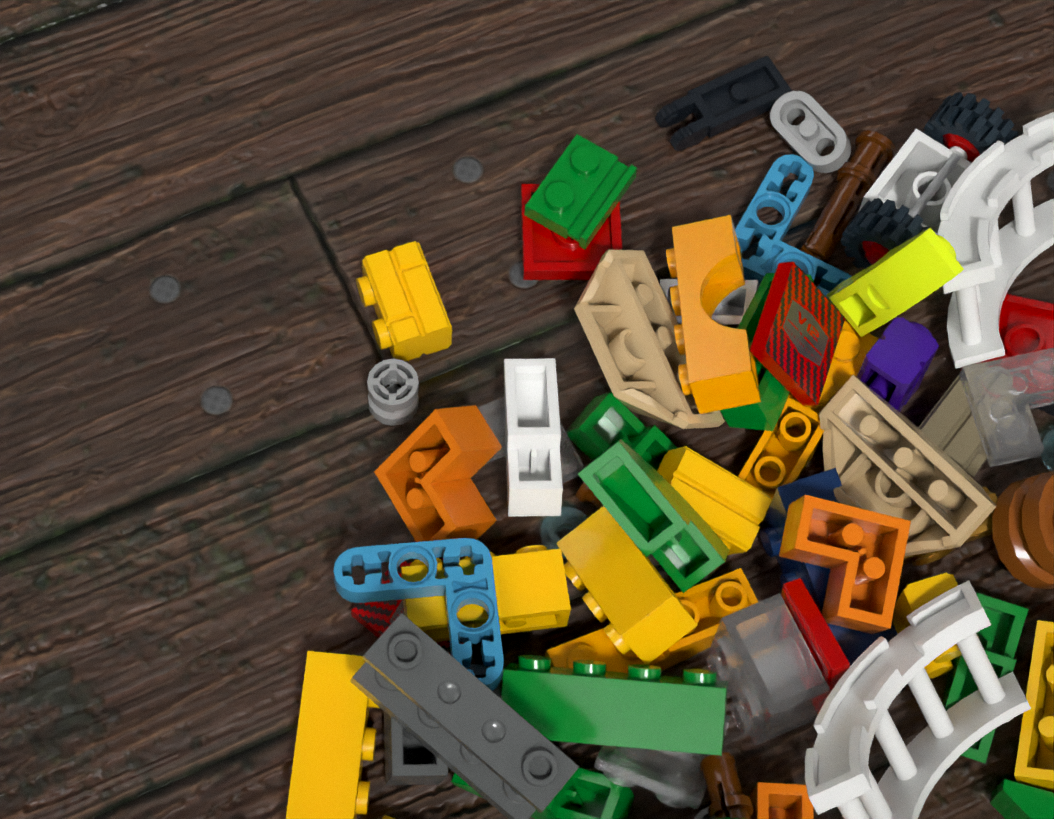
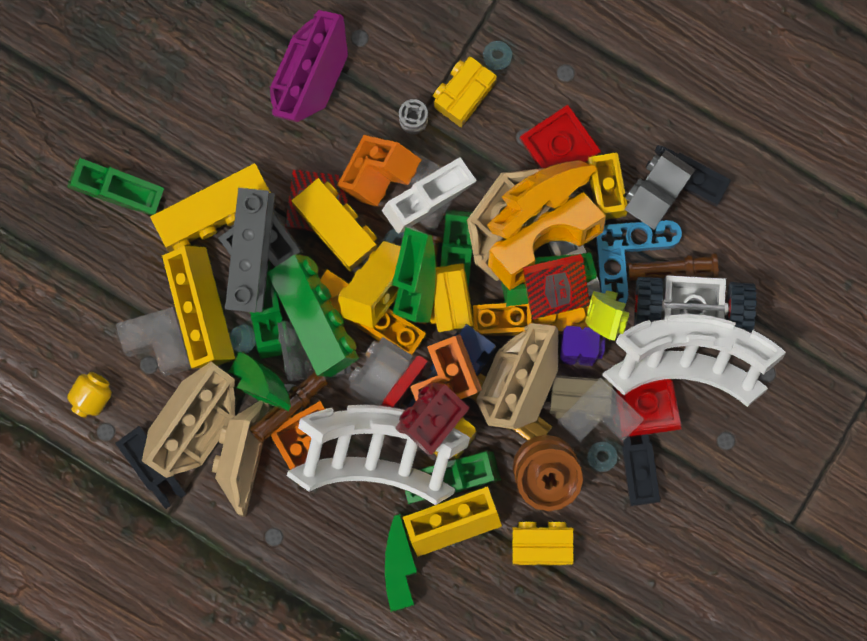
camera: 65 degrees right, 15 degrees up
(212, 485) = (310, 67): none -> magenta wedge
(379, 218) = (493, 63): none -> clear light blue plate
(456, 587) = (319, 210): dark azure beam -> none
(580, 191) = (580, 135): green plate -> none
(639, 280) = (546, 187): none -> light orange slope
(673, 196) = (608, 185): none -> yellow brick
(728, 136) = (653, 197): none -> brick
(813, 133) = (697, 230): light grey plate -> none
(914, 604) = (432, 416): none -> dark red bracket

